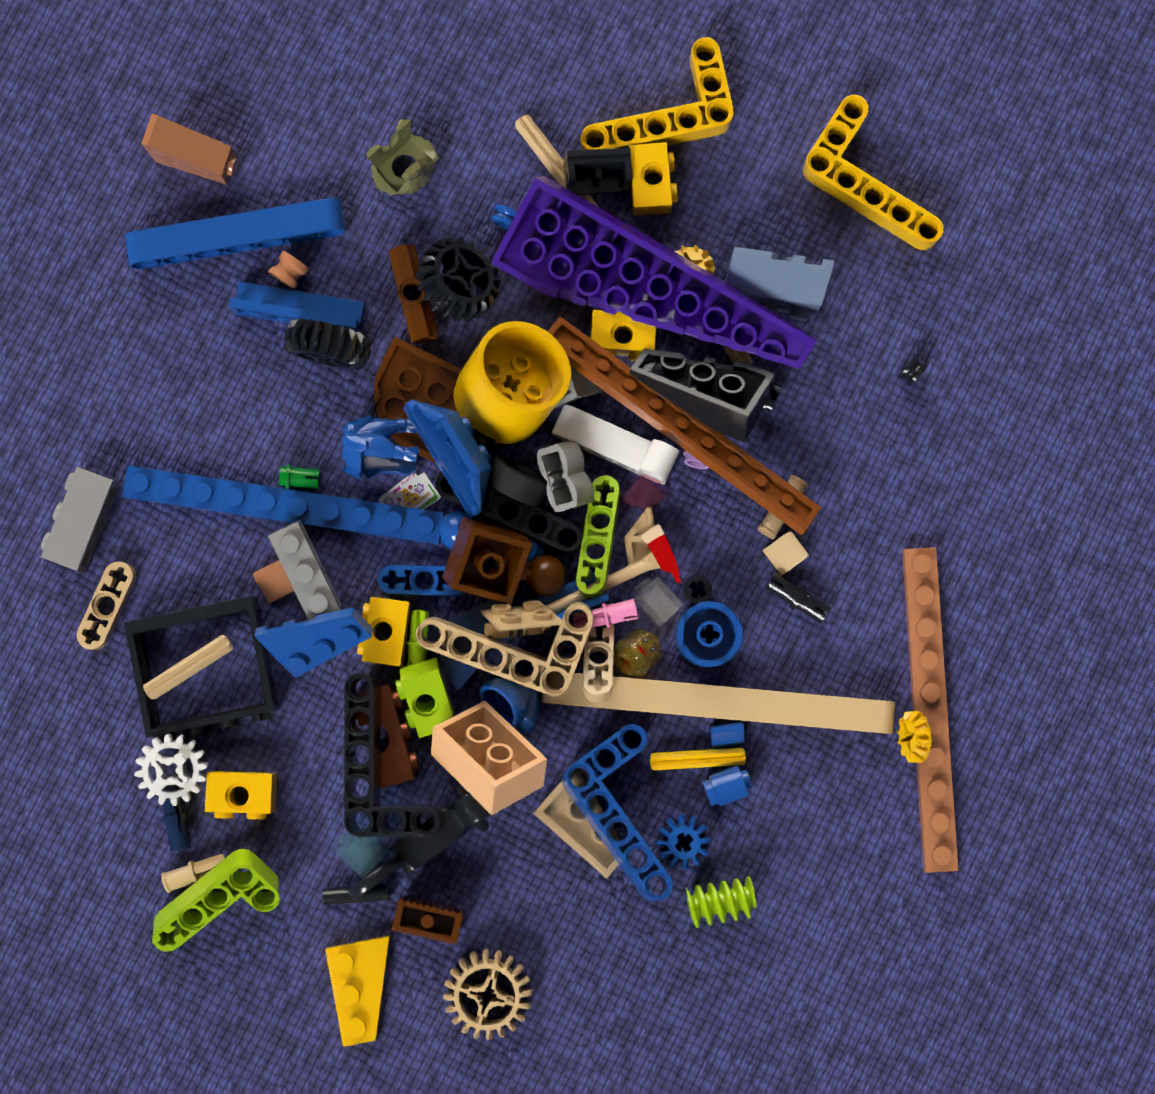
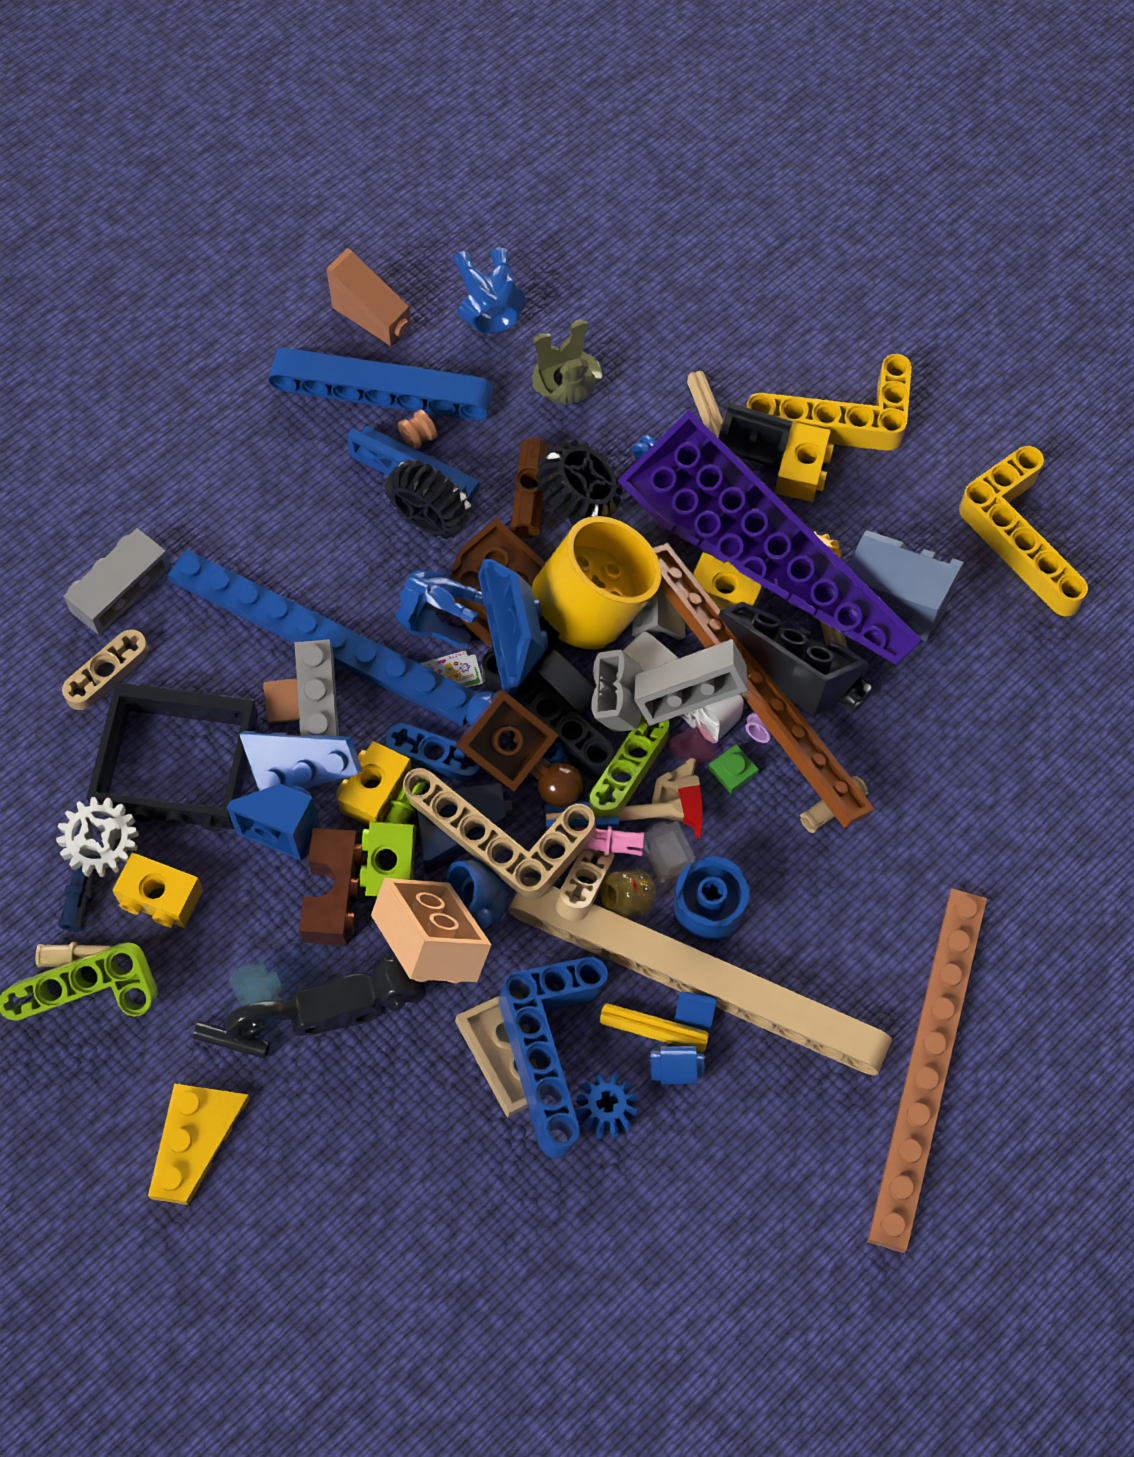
camera: 20 degrees right, 20 degrees down
(188, 667) = (159, 743): tan axle -> none
(297, 477) = (348, 614): green pin -> none
(302, 104) = (492, 299): none -> blue piece
(316, 697) = (276, 818): none -> blue slope
(371, 771) = (301, 902): black beam -> none
(428, 919) = (297, 1086): reddish brown brick -> none
(472, 991) = (304, 1175): tan gear -> none
(529, 619) = (534, 807): tan hinge -> none
(629, 452) = (691, 682): none -> light grey brick
(686, 503) = (733, 769): none -> bright green plate
(707, 589) = (717, 845): black bush -> none
(721, 901) = (625, 1185): lime piece -> none
(785, 553) = (822, 851): tan slope -> none
(798, 598) = (820, 900): black pin -> none
(913, 371) = (1015, 718): black bush -> none
(916, 746) = (902, 1081): yellow gear -> none

